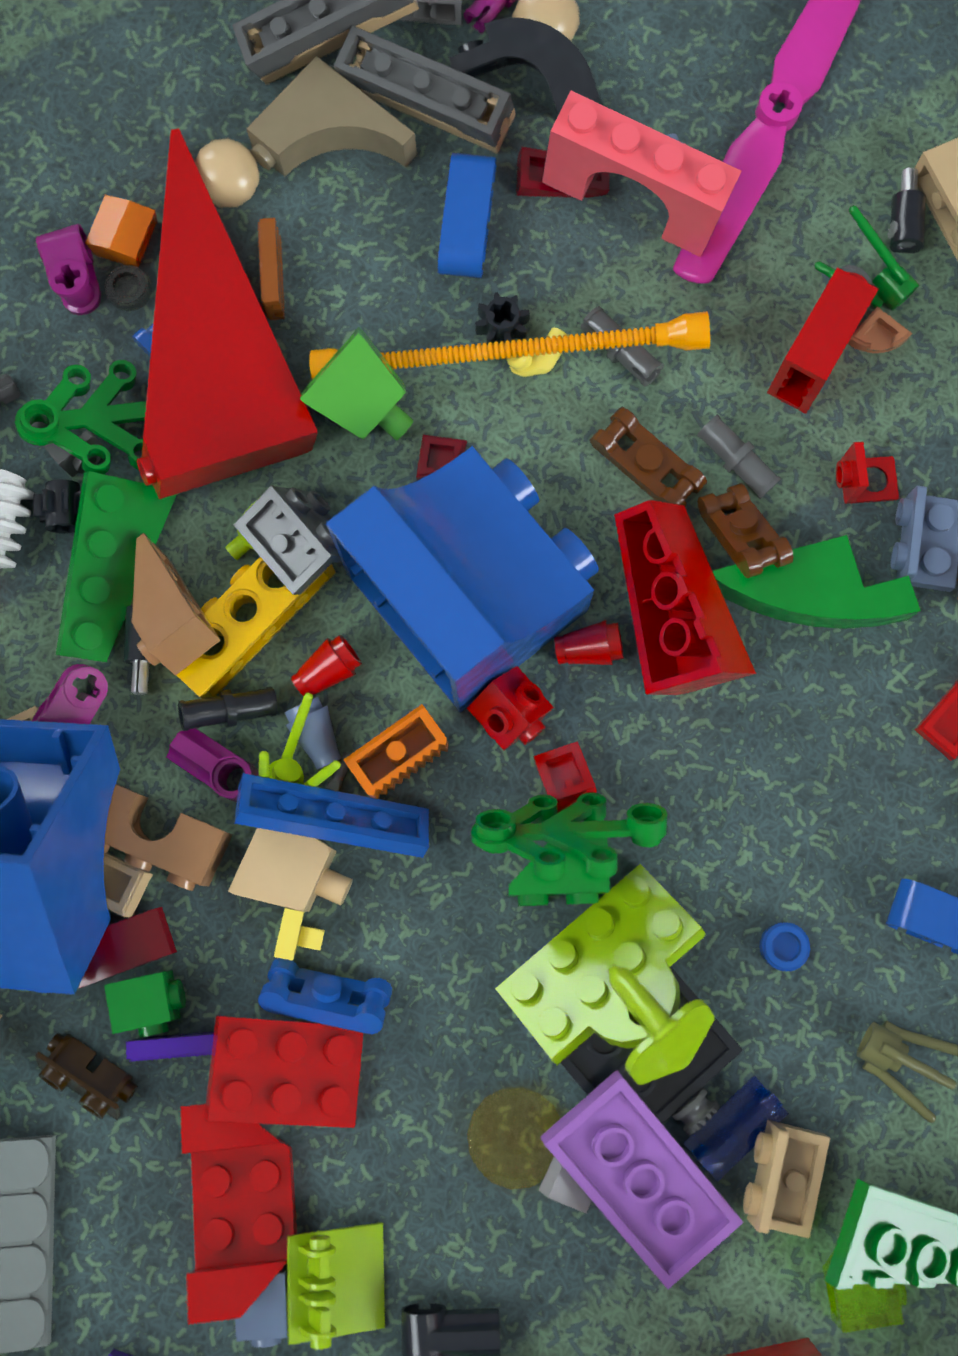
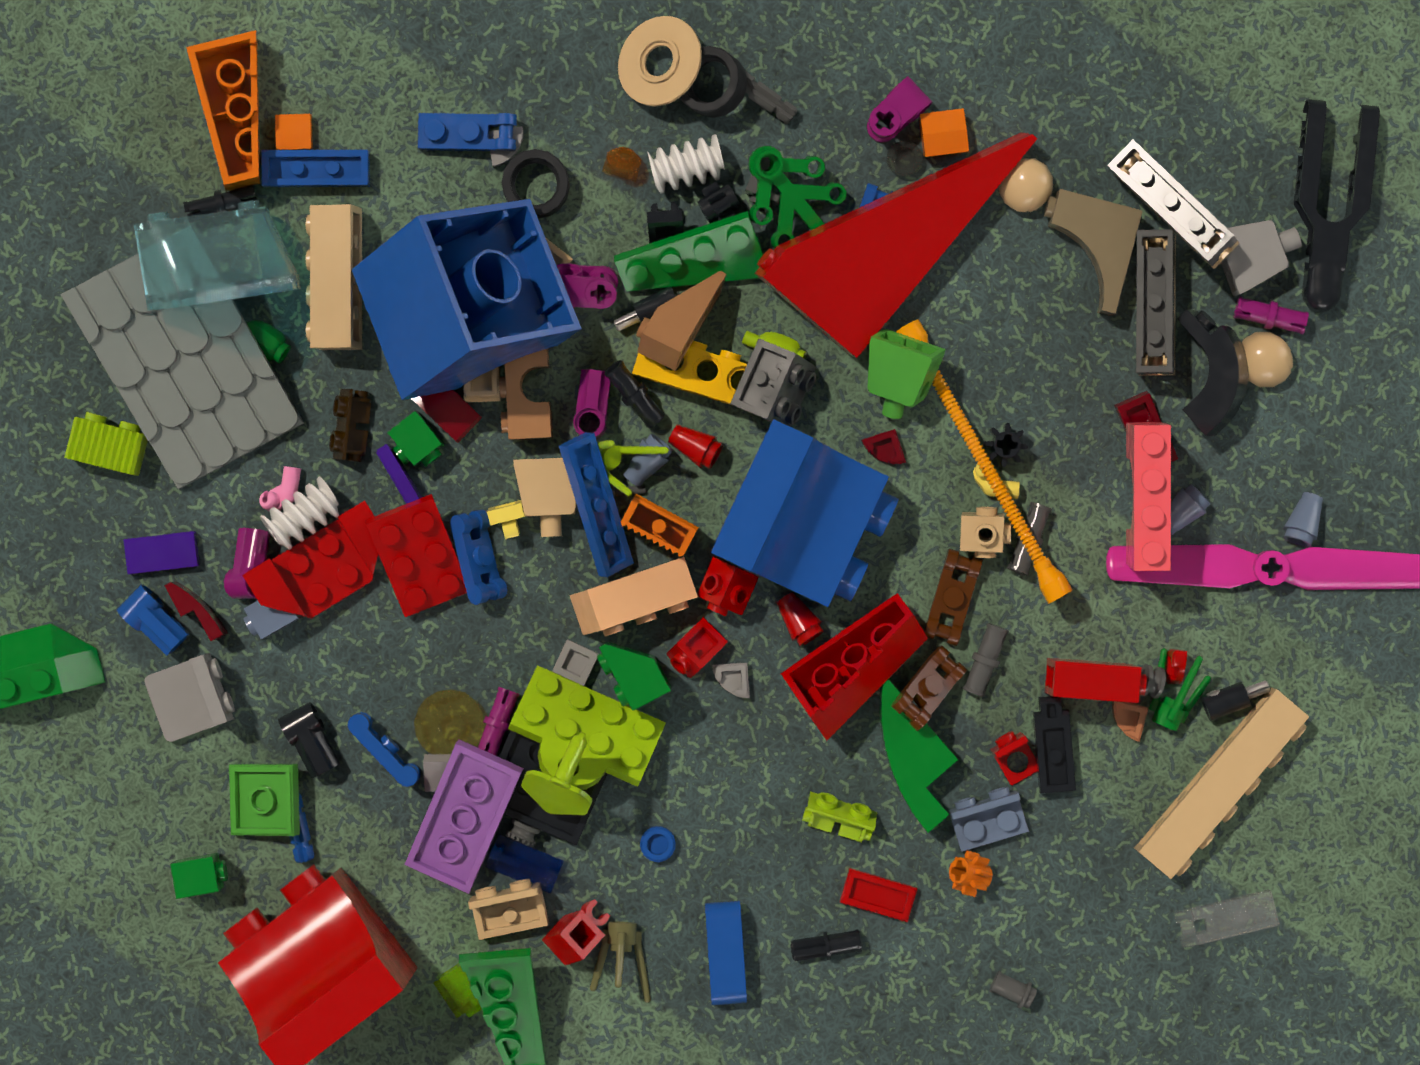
camera: 60 degrees right, 10 degrees up
(49, 577) = (664, 223): none -> black tile
(126, 1207) = (284, 491): none -> bright pink arm
(158, 1198) = (301, 514): none -> white piece
(166, 1289) = (249, 553): none -> magenta piece
(271, 269) = (965, 258): dark orange tile -> none
(335, 1284) = (305, 653): lime hinge -> none
(459, 868) = (634, 598): none -> light nougat wedge
(466, 215) = (1076, 379): blue beam -> none
(504, 831) = (639, 629): green plant -> none
(507, 1242) = (383, 749): none -> blue plate
(514, 939) = (575, 662): none -> light grey tile
(541, 1073) = (498, 721): none -> magenta pin
(582, 399) = (984, 518): none -> tan brick
(624, 757) = (733, 678): none -> light grey tile
(743, 54) = (1304, 520): none -> sand blue cone
(841, 251) = (1175, 659): none -> red tile
(858, 1106) = (576, 934): none -> red brick
(862, 693) = (855, 819): none -> lime hinge
(881, 428) = (1053, 746): none -> black hinge

